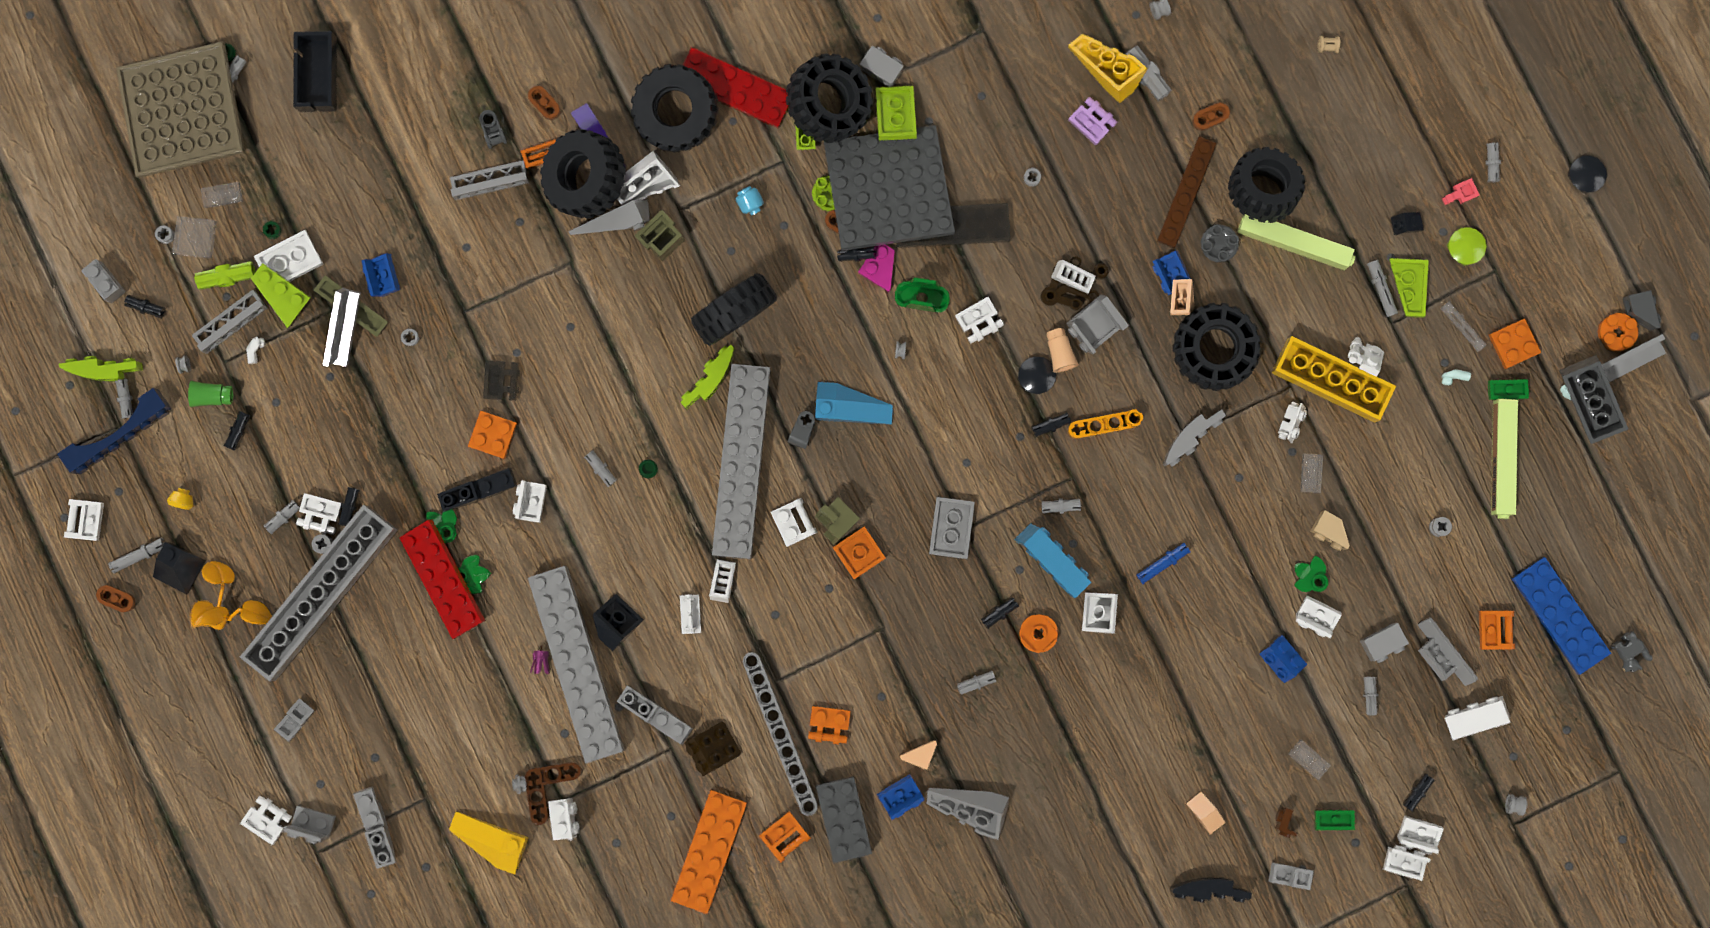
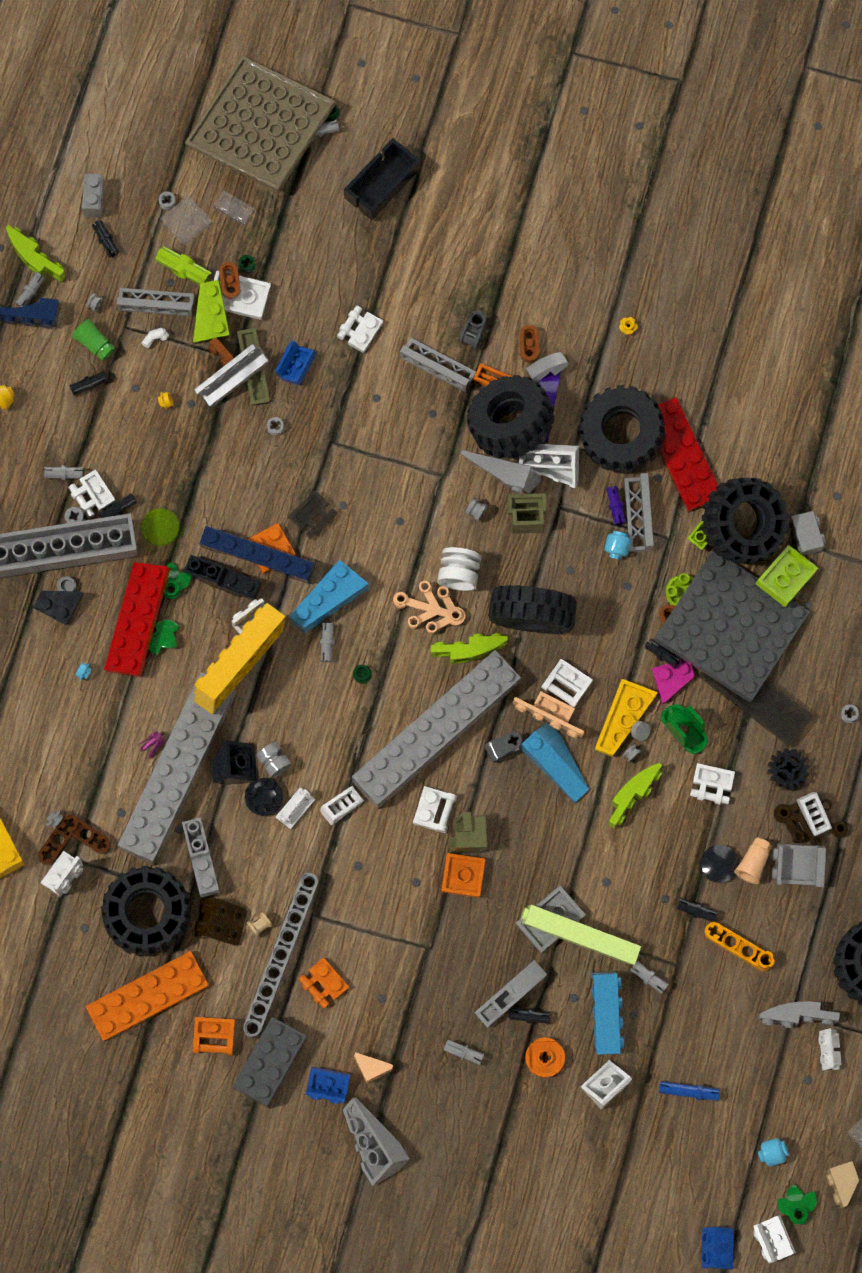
camera: 40 degrees right, 10 degrees down
(272, 256) = (230, 281): none -> dark orange plate
(308, 391) = (165, 400): none -> yellow plate
(311, 316) = (218, 349): none -> dark orange plate
(365, 601) = (66, 584): none -> light grey tile
(372, 621) = (58, 604): none -> black wing
(394, 492) = (160, 527): none -> clear neon green tile
(411, 204) = (364, 333): none -> white plate
(438, 654) = (83, 671): none -> medium azure plate
(487, 449) = (256, 553): none -> dark blue arch
(548, 543) = (238, 658): none -> yellow brick
(570, 431) = (334, 591): none -> dark azure wedge
(575, 103) = (551, 363): none -> light grey slope
(606, 27) = (628, 330): none -> yellow plate
(620, 267) = (476, 509): none -> light grey wheel
(622, 798) = (154, 939): none -> black tyre
(642, 593) = (273, 759): none -> light grey wheel
(647, 322) = (459, 569): none -> white wheel
(655, 373) = (432, 609): none -> light nougat plant
(659, 627) = (263, 796): none -> black dish
(721, 171) = (616, 505): none -> dark purple pin
(743, 725) = (259, 924): none -> tan bush
(749, 157) = (646, 518): none -> light grey fence
(806, 333) = (570, 678): none -> white plate
(813, 371) = (552, 711): none -> light nougat bracket
(867, 321) = (626, 710): none -> yellow wing
(892, 327) = (640, 730): none -> light grey tile
(928, 372) = (636, 787): none -> lime slope
(973, 609) = (510, 993): none -> light grey slope
(985, 520) = (580, 934): none -> yellowish green brick
(1030, 265) = (787, 761): none -> black gear
(1241, 448) = (828, 1041): none -> white hinge
(1262, 553) = (773, 1152): none -> medium azure head

